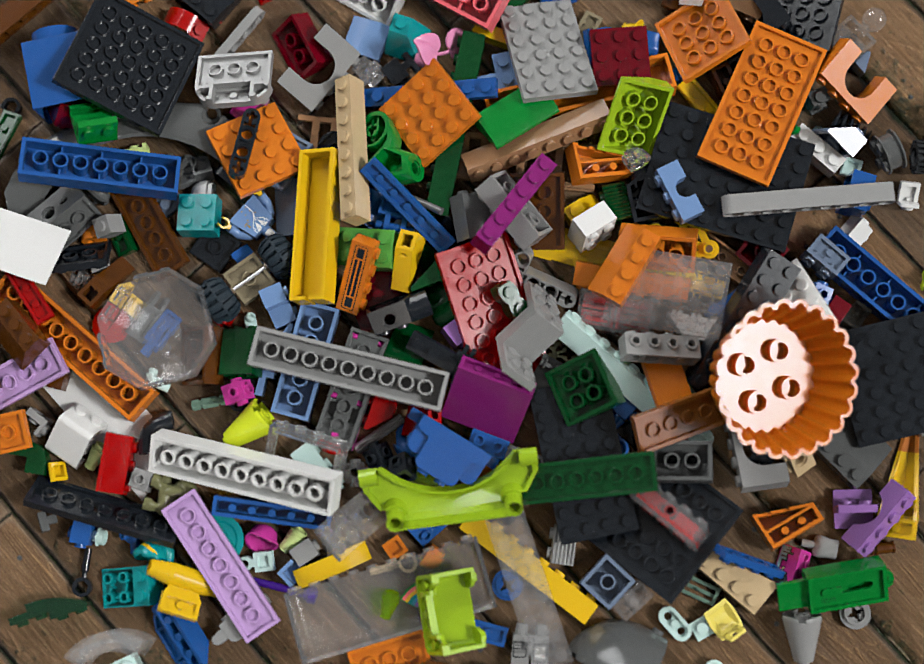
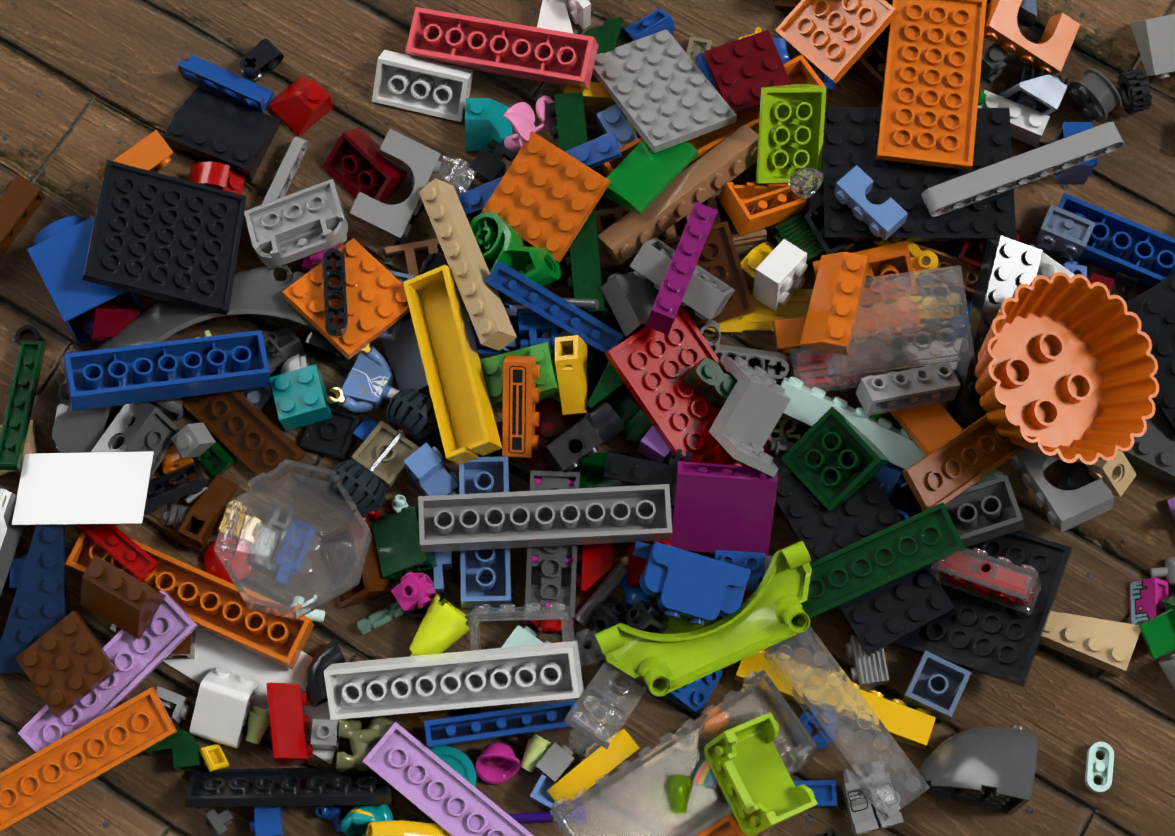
camera: 20 degrees left, 10 degrees down
(92, 124) = (143, 319): green piece -> none
(100, 537) = (291, 822): light aqua plate -> none
(261, 560) = (505, 790): light aqua plate -> none
(368, 37) = (442, 134): medium blue slope -> none
(395, 547) = (664, 723): orange plate -> none
(632, 600) = (974, 699): clear brick -> none
(675, 622) = (1033, 714): light aqua plate -> none
(697, 96) = (850, 95): yellow tile -> none
(700, 628) = (1068, 710): light aqua plate -> none
(714, 596) = (1050, 675): sand green tile -> none
(724, 621) = (1092, 691): light yellow piece -> none
(752, 563) = (1106, 611): blue plate -> none
(786, 524) = (1126, 555): orange wedge -> none
(849, 165) = (1054, 125): light aqua tile -> none
(857, 229) = (1090, 191): white brick -> none
(908, 195) = (1135, 138): white bracket -> none

